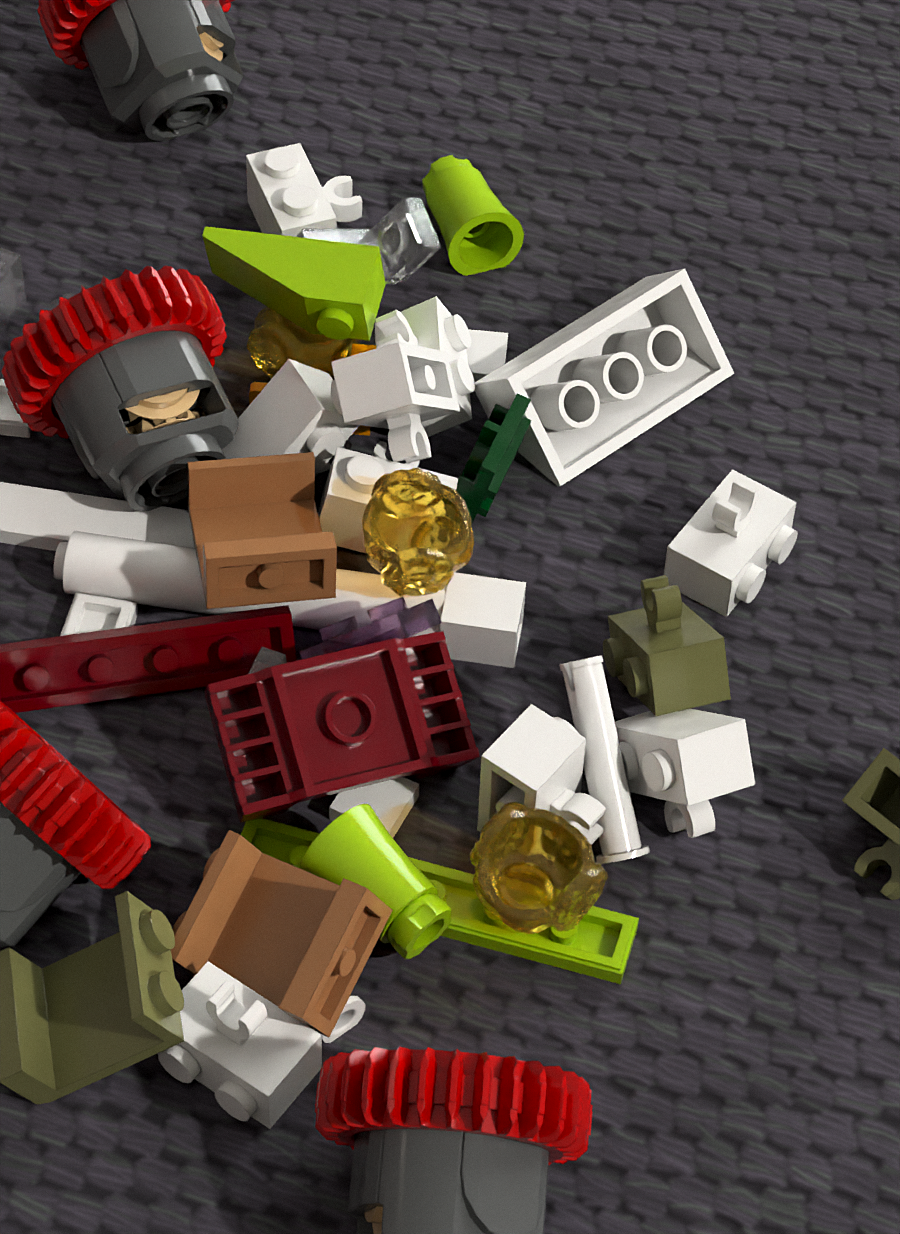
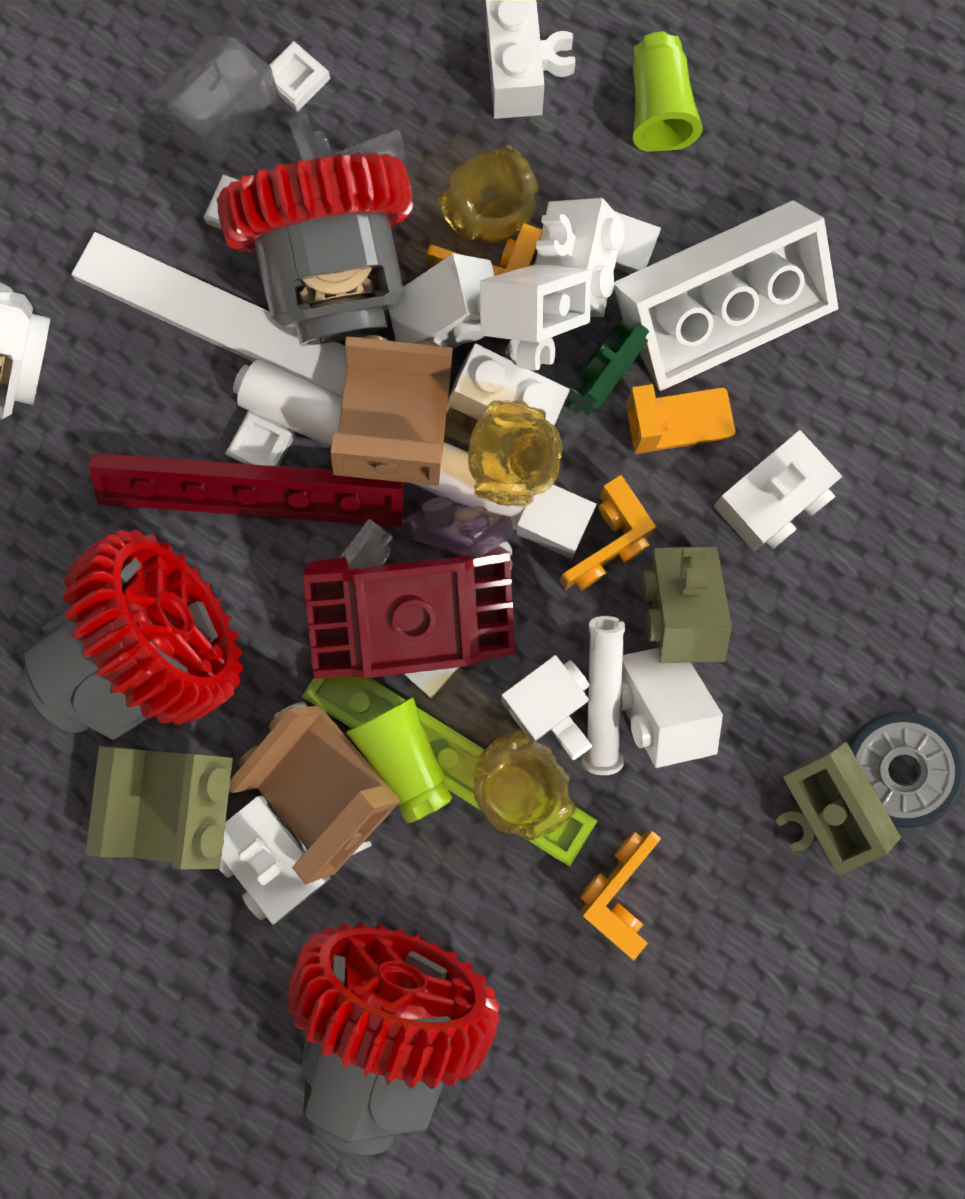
camera: 20 degrees right, 30 degrees up
(47, 275) = (298, 76): none -> white tile
(312, 282) = (505, 167): lime slope -> none
(402, 236) = (566, 118): clear bracket -> none
(573, 618) = (622, 511): none -> light orange bracket
(581, 508) = (677, 418): none -> light orange bracket
(690, 1014) = (619, 923): none -> light orange bracket

